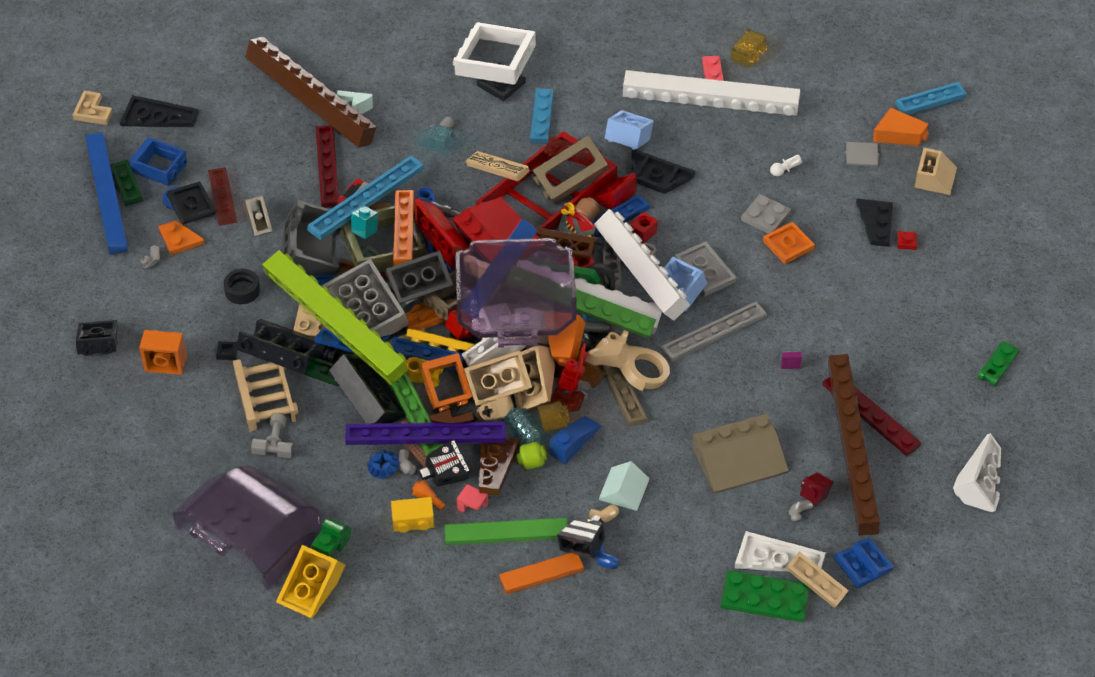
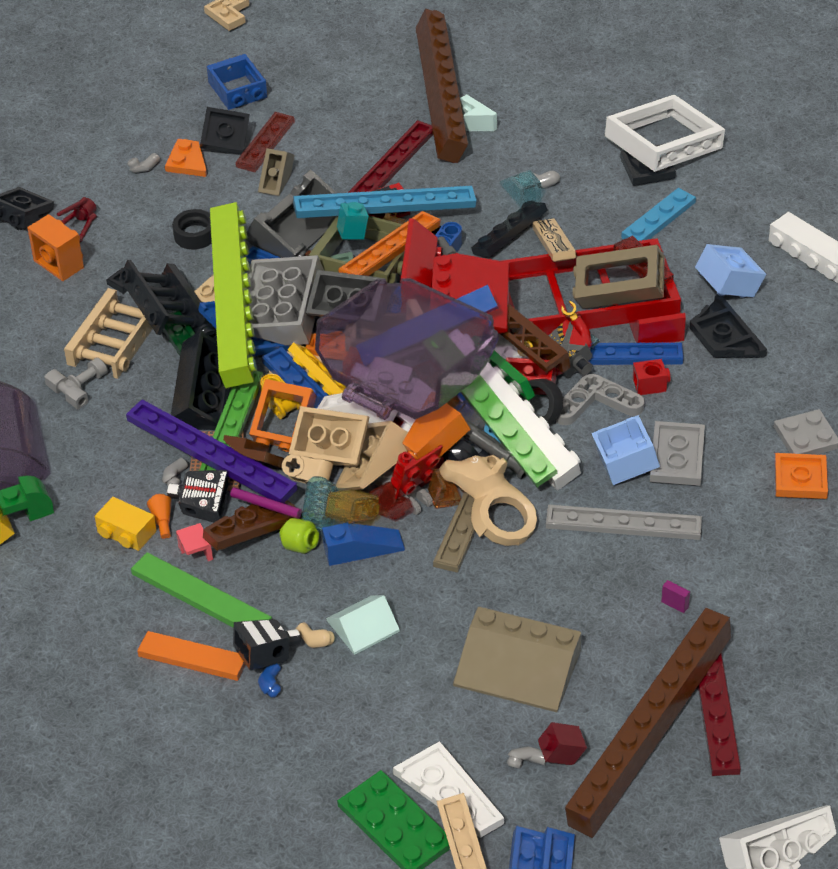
camera: 40 degrees right, 5 degrees down
(106, 193) = (162, 87): blue beam -> none
(126, 182) = (189, 88): dark green plate -> none
(145, 315) = (83, 210): none -> dark red plant
(156, 113) = (282, 40): black wing -> none
(388, 468) = (144, 463): blue gear -> none
(456, 173) = (507, 230): none -> black plate
(494, 446) = (265, 502): none -> magenta bar
(588, 207) = (606, 328): medium nougat head -> none
(642, 264) = (595, 407): white brick -> none

